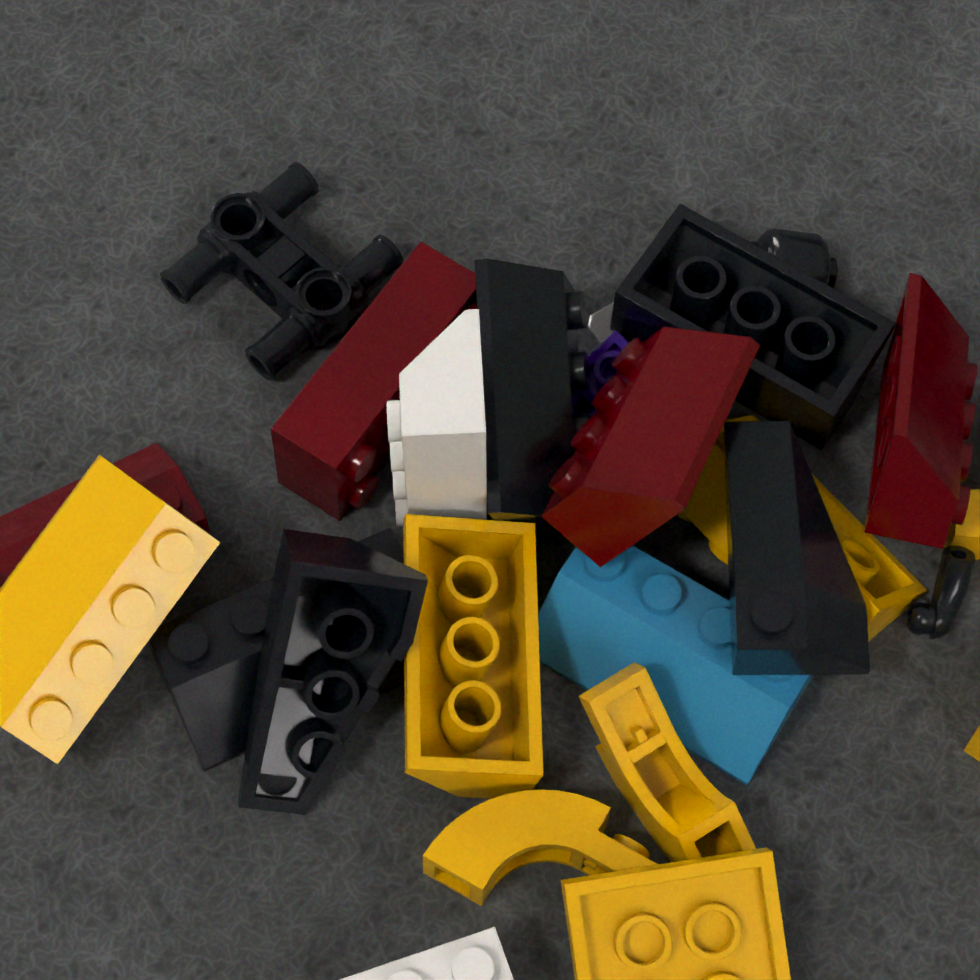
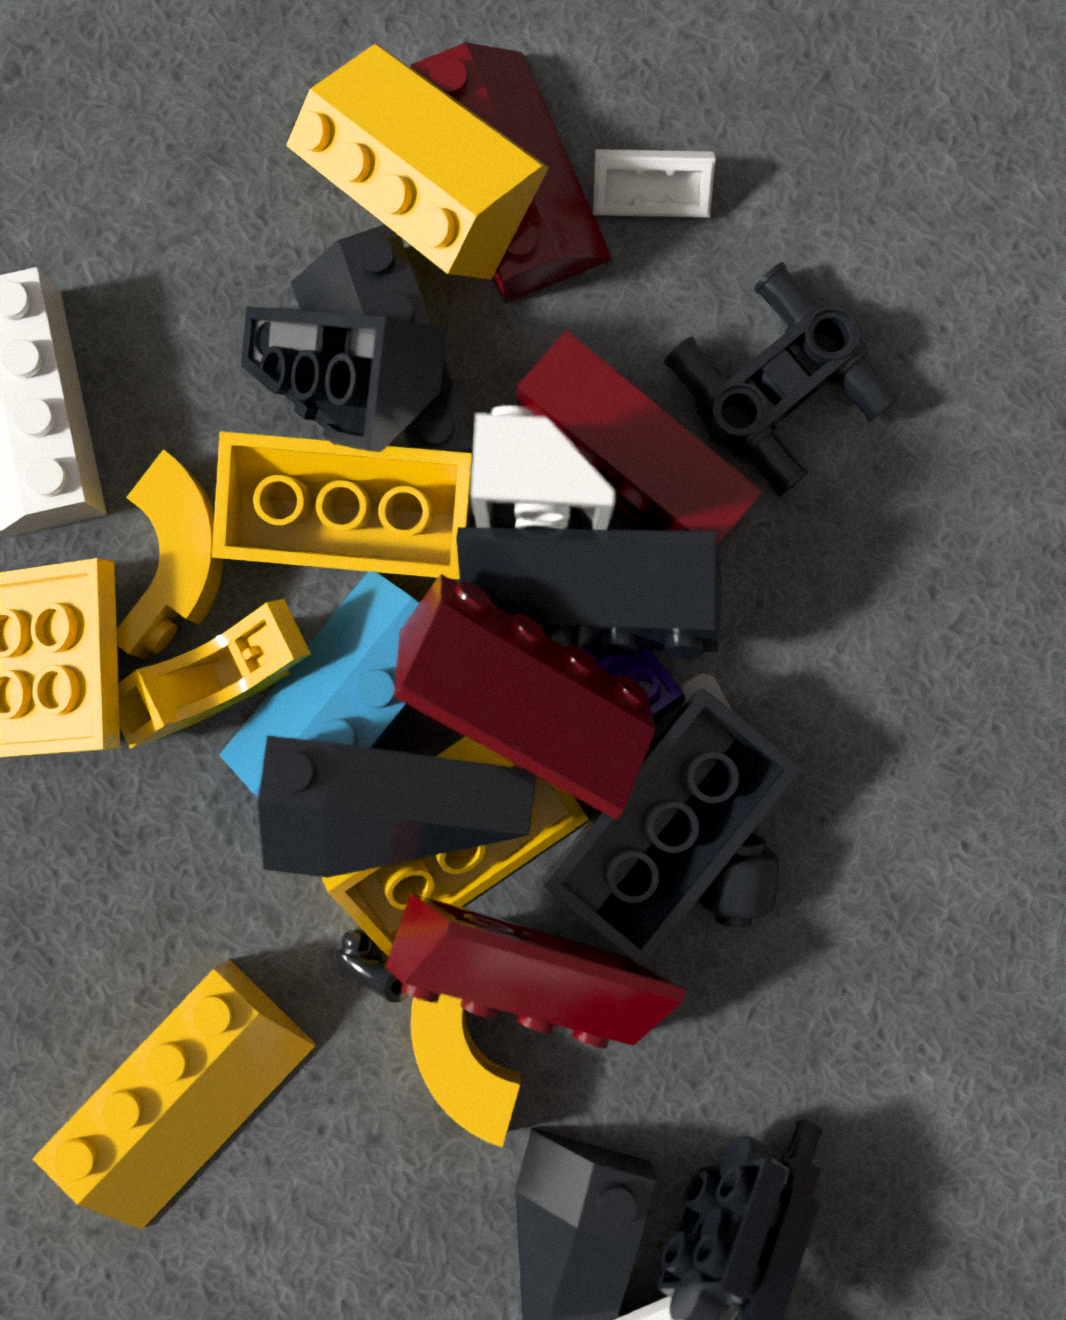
camera: 100 degrees right, 20 degrees up
(76, 402) = (653, 183): none -> white plate

